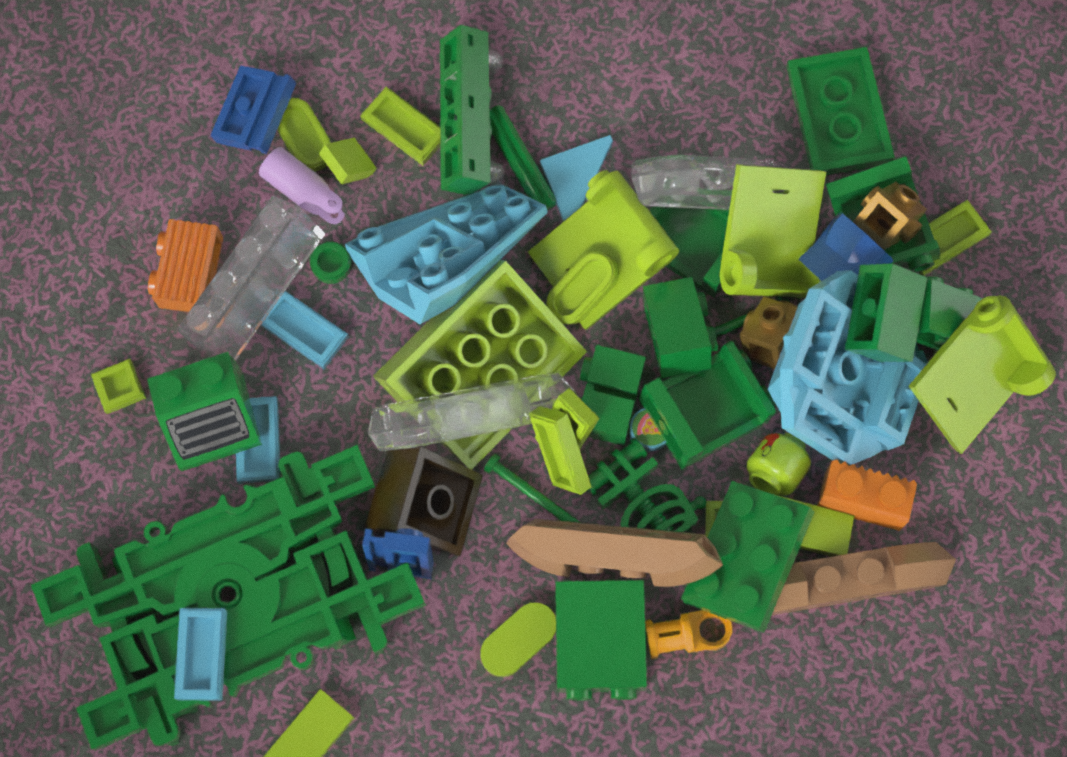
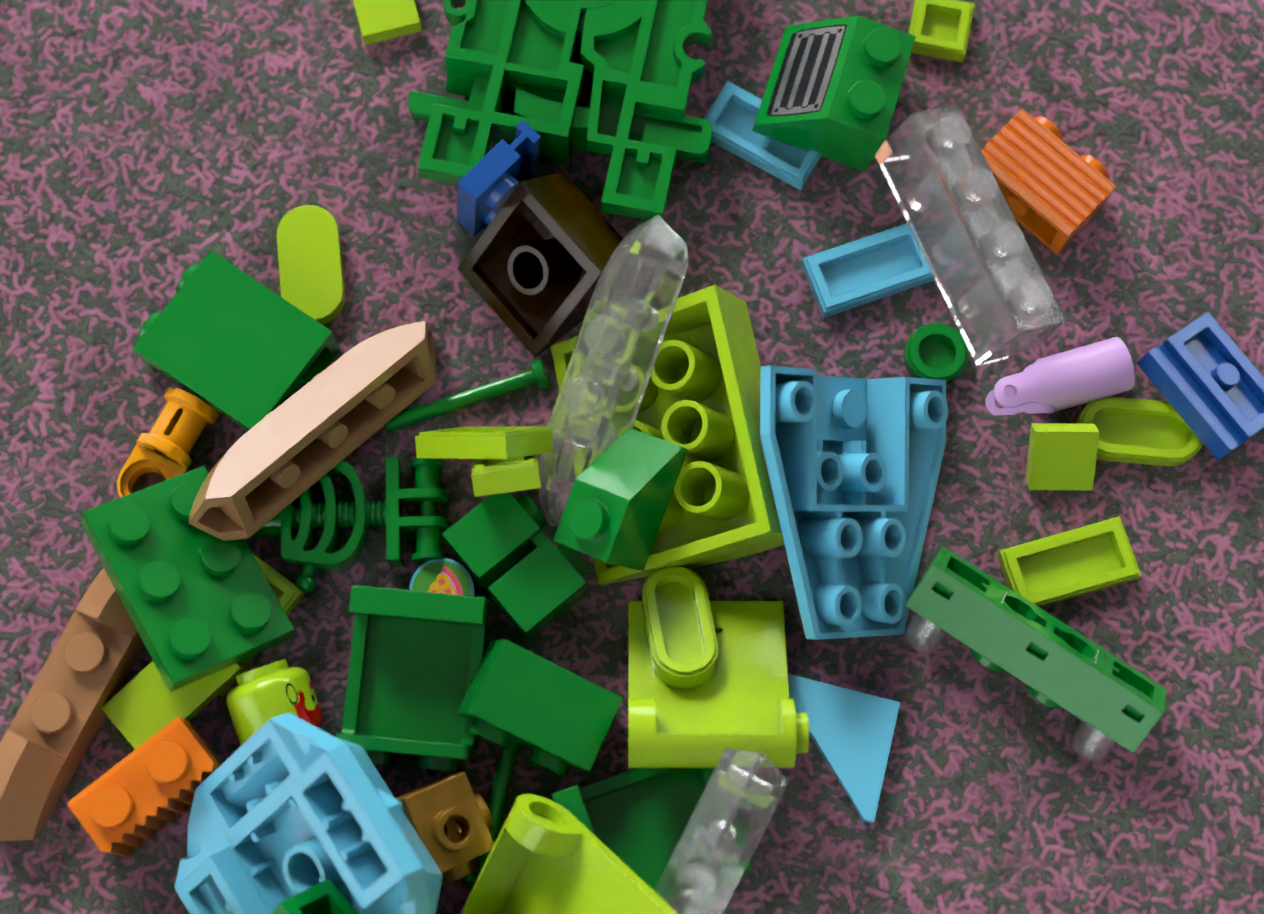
camera: 120 degrees right, 0 degrees up
(520, 158) = (921, 679): green axle -> none
(538, 355) = (622, 500): none -> green slope

